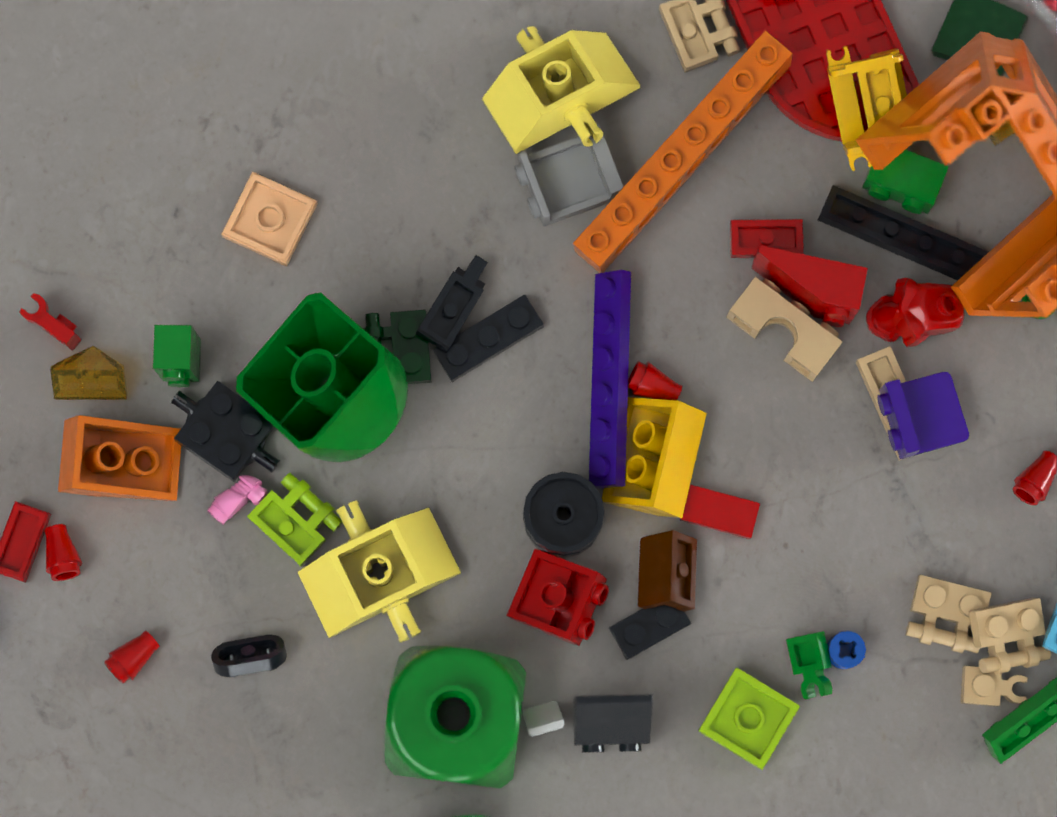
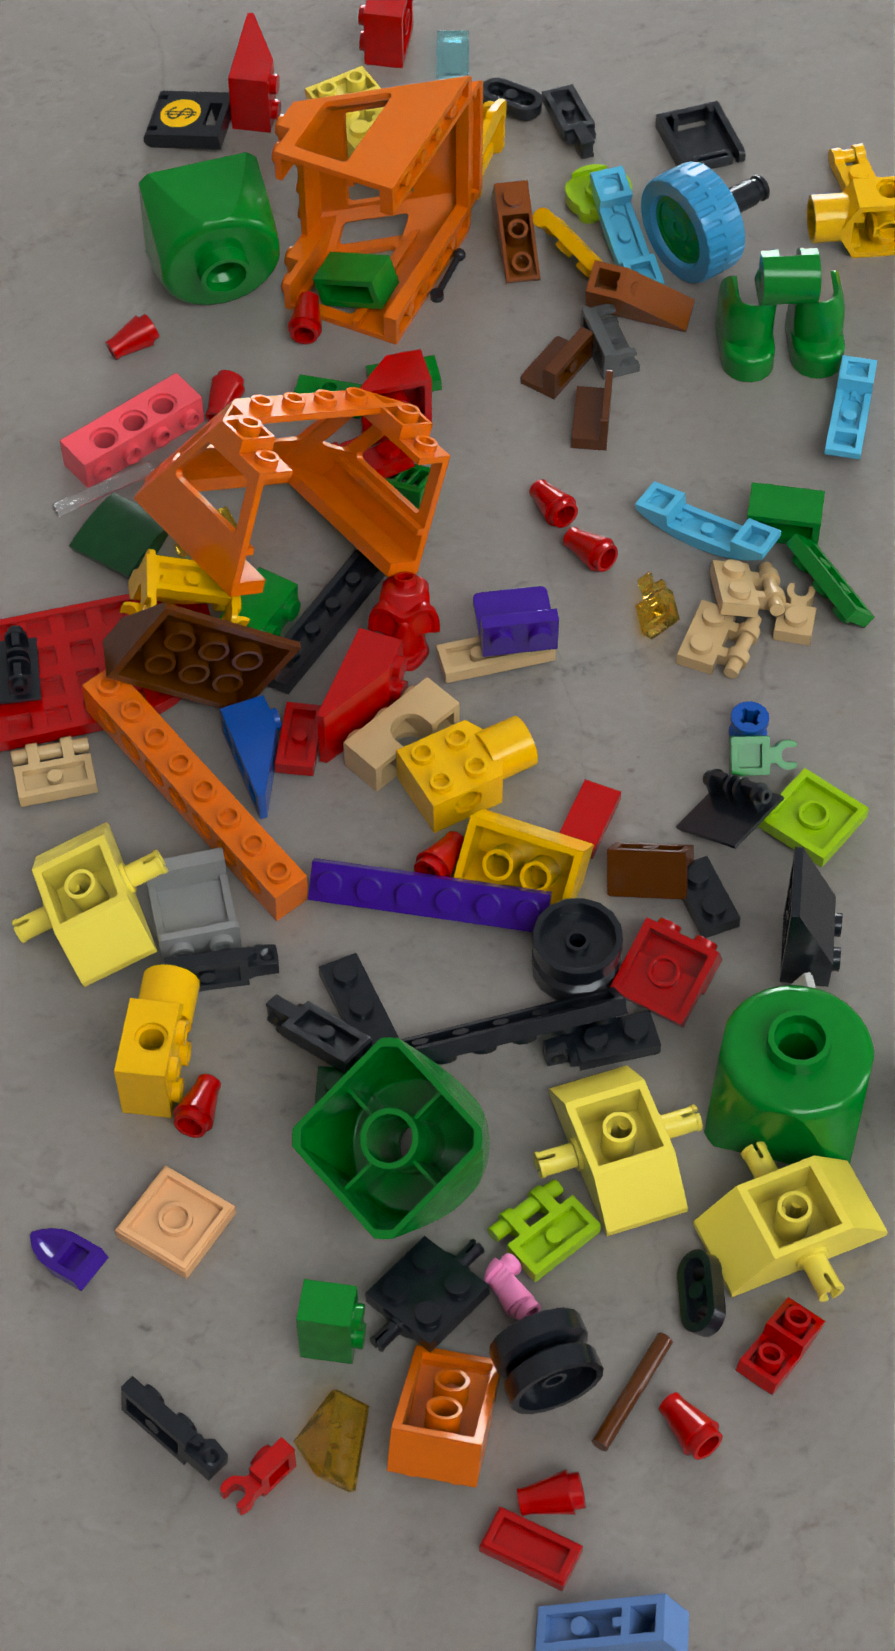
camera: 80 degrees left, 25 degrees down
(82, 249) = (171, 1430): none -> black hinge
(157, 534) = (546, 1360): none -> black wheel
(161, 608) = (632, 1392): none -> reddish brown bar
(214, 726) = (780, 1345): none -> red slope
(223, 138) = (68, 1255): none -> dark purple plate
(331, 763) = (788, 1222): none -> light yellow slope
(374, 217) = (197, 1109): none -> red cone
(432, 166) = (156, 1041): none -> yellow brick
(473, 459) = (520, 1026): none -> black plate
(485, 552) = (605, 1044): none -> black hinge
(511, 213) = (229, 966): none -> black hinge
(740, 639) = (730, 808): none -> black hinge
(750, 391) = (463, 768): none -> yellow brick
(754, 197) = (253, 741): none -> blue slope
(808, 121) = (194, 655): none -> reddish brown slope
(973, 550) = (657, 608): none -> clear yellow plate

